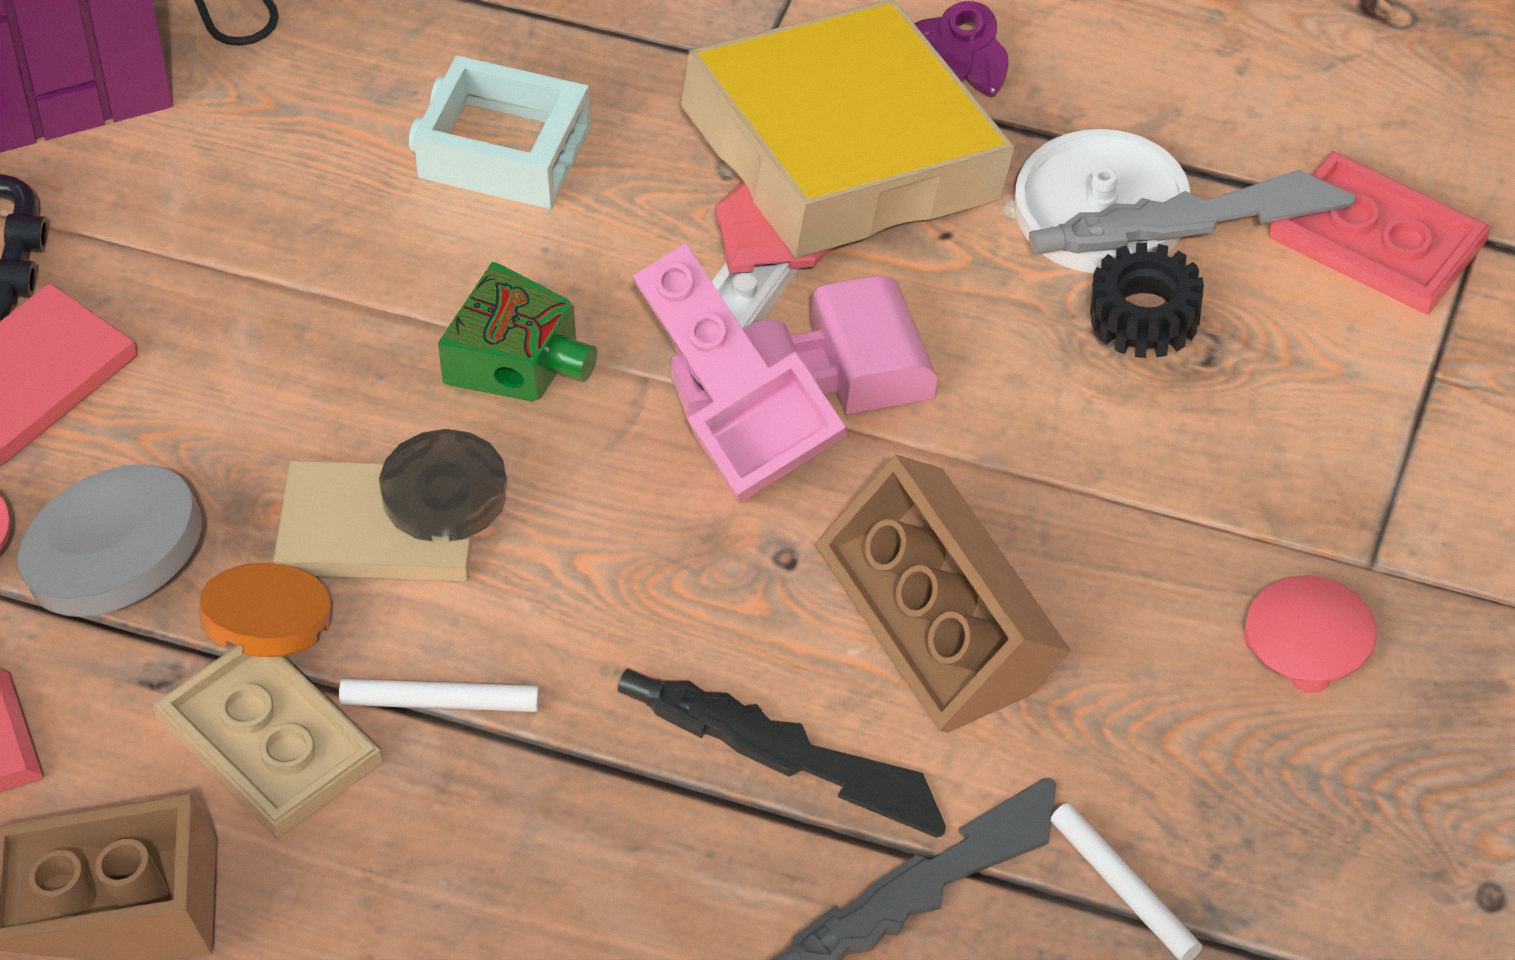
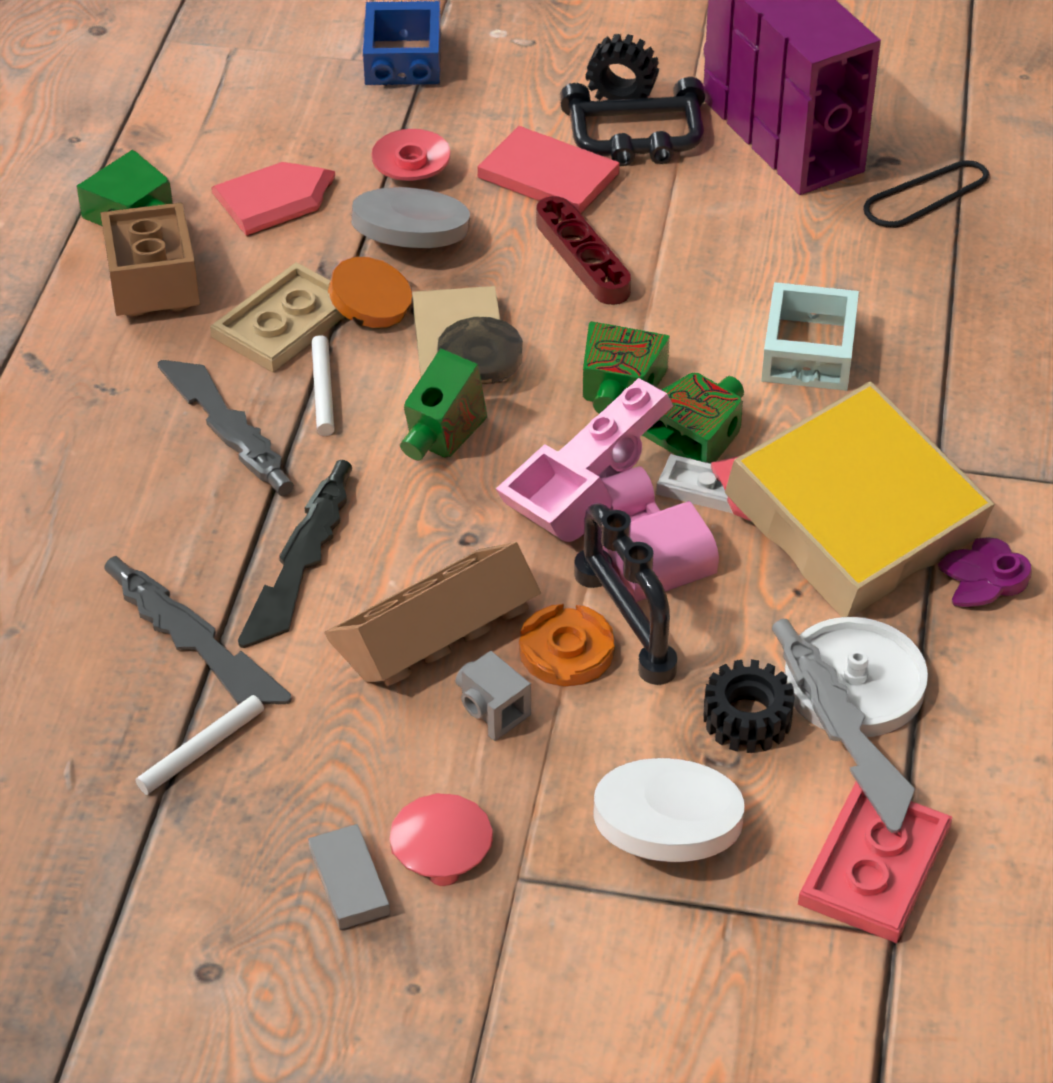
camera: 80 degrees right, 5 degrees down
(227, 346) = (591, 246): none -> dark red beam
(486, 823) = (229, 425): none -> dark grey sword
(569, 532) = (444, 407): none -> green torso
(611, 254) = (702, 417): none -> green torso
(1008, 469) = (566, 645): none -> orange tile
(1051, 379) = (594, 569): none -> black bar
(1099, 542) = (494, 694): none -> light grey brick
(1310, 391) = (668, 809): none -> white piece
(1364, 731) = (349, 876): none -> light grey tile

